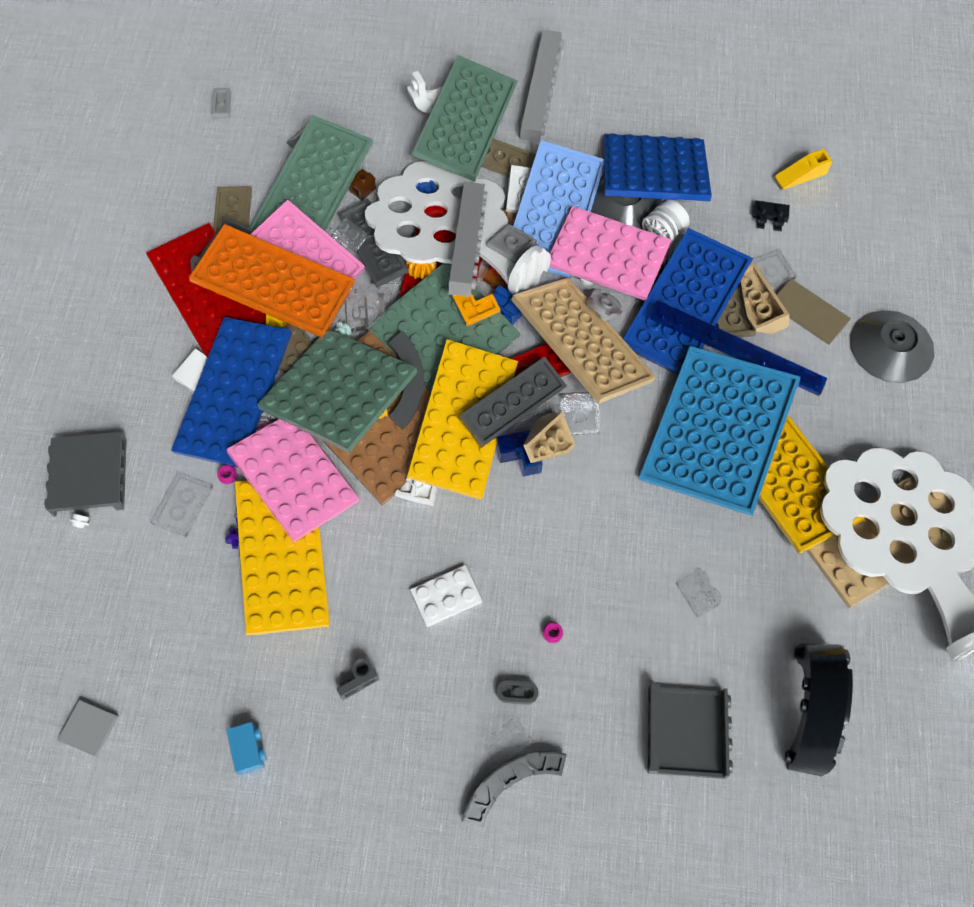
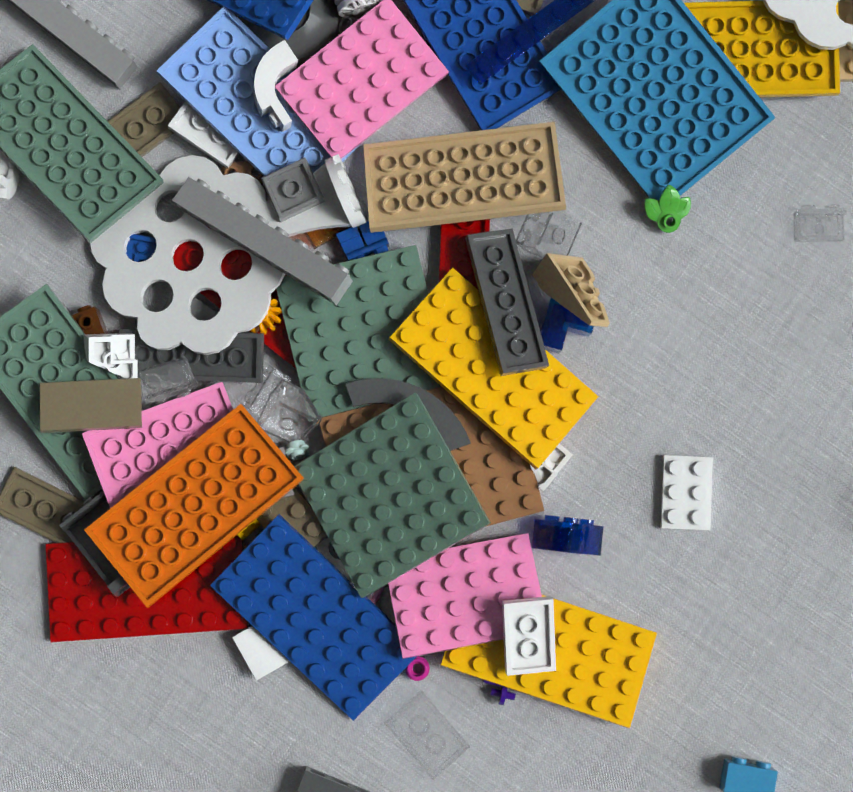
camera: 65 degrees left, 20 degrees up
(281, 523) = (529, 635): none -> white plate
(308, 197) = (90, 405): none -> dark tan tile
(348, 196) = (112, 353): none -> white slope
(360, 682) = (738, 629): dark grey plate -> none
(369, 523) = (567, 535): none -> clear blue brick
(475, 311) = (367, 283): light orange plate -> none
(517, 691) = (828, 472): dark grey plate -> none
(557, 628) = (791, 397): dark pink plate -> none
(577, 196) = (271, 68): none -> white arch
(606, 306) = (436, 131): light grey plate -> none
(645, 478) = (667, 206): none -> bright green plate

